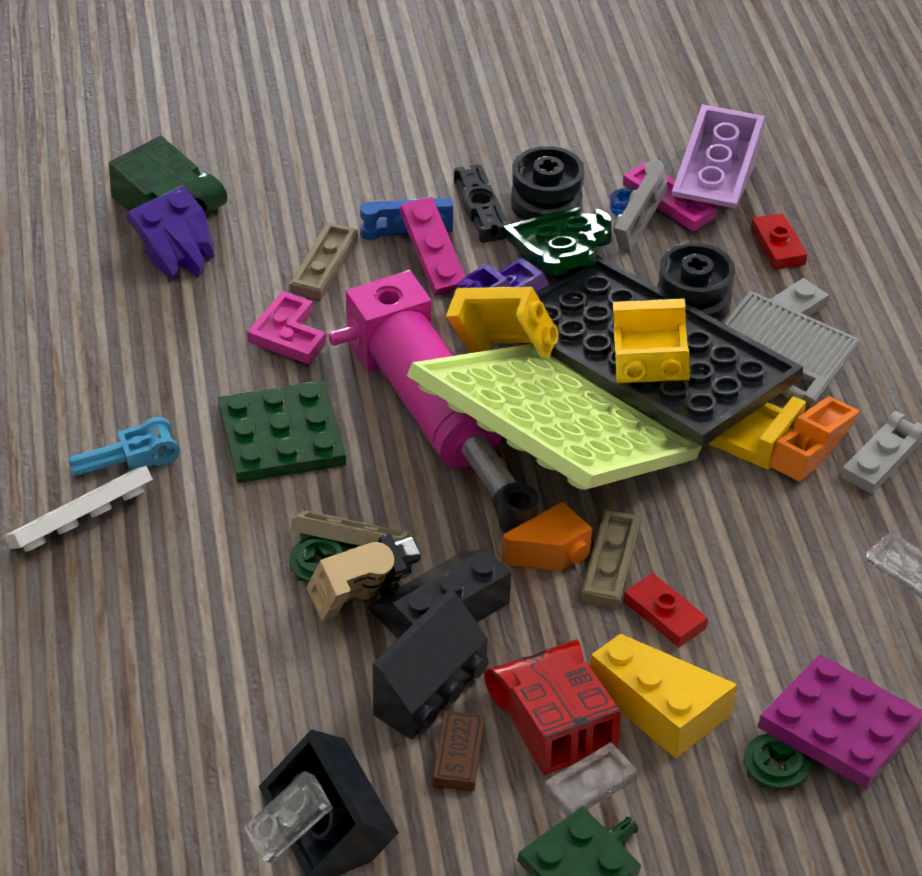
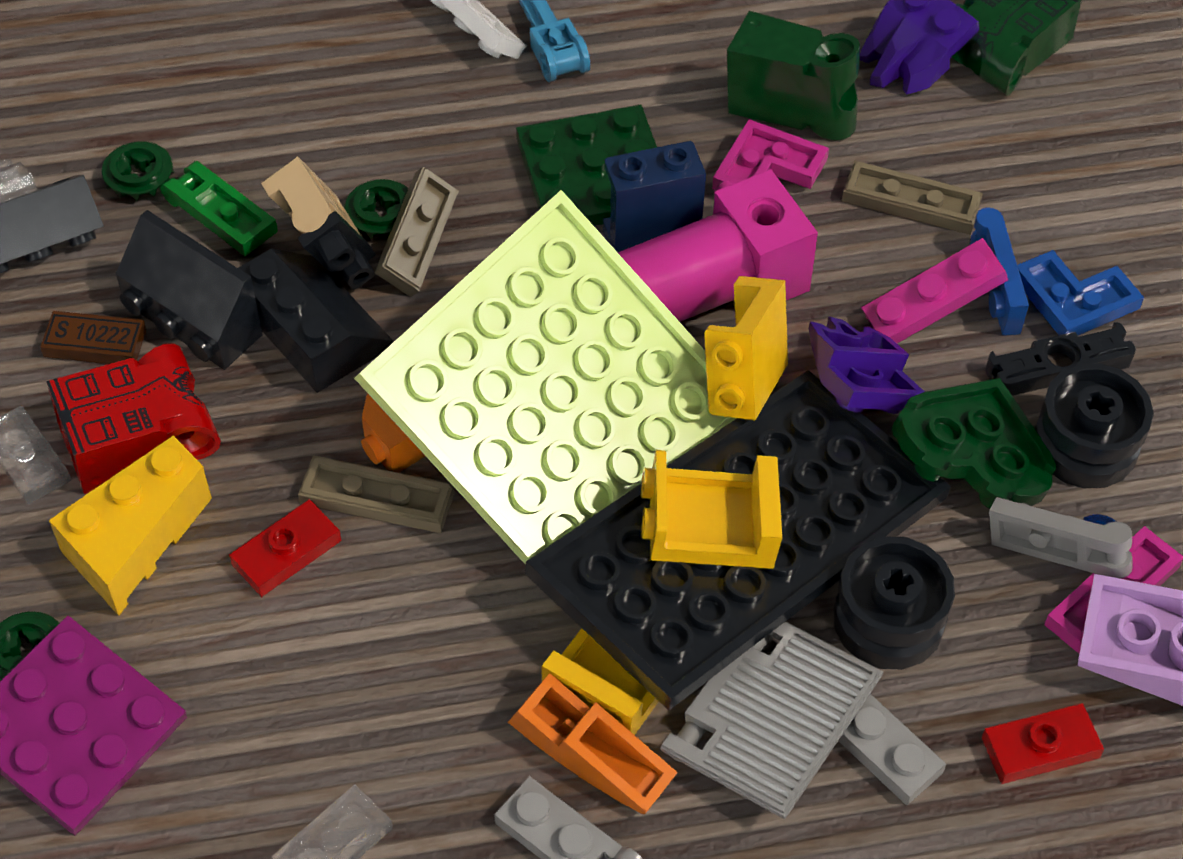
camera: 90 degrees right, 10 degrees up
(216, 293) = (793, 76): none -> dark green piece
(267, 720) = (144, 156): none -> dark green gear
(313, 668) = (220, 208): none -> green plate
(356, 384) = (653, 193): none -> dark blue panel
(429, 180) = (1077, 304): none -> blue plate

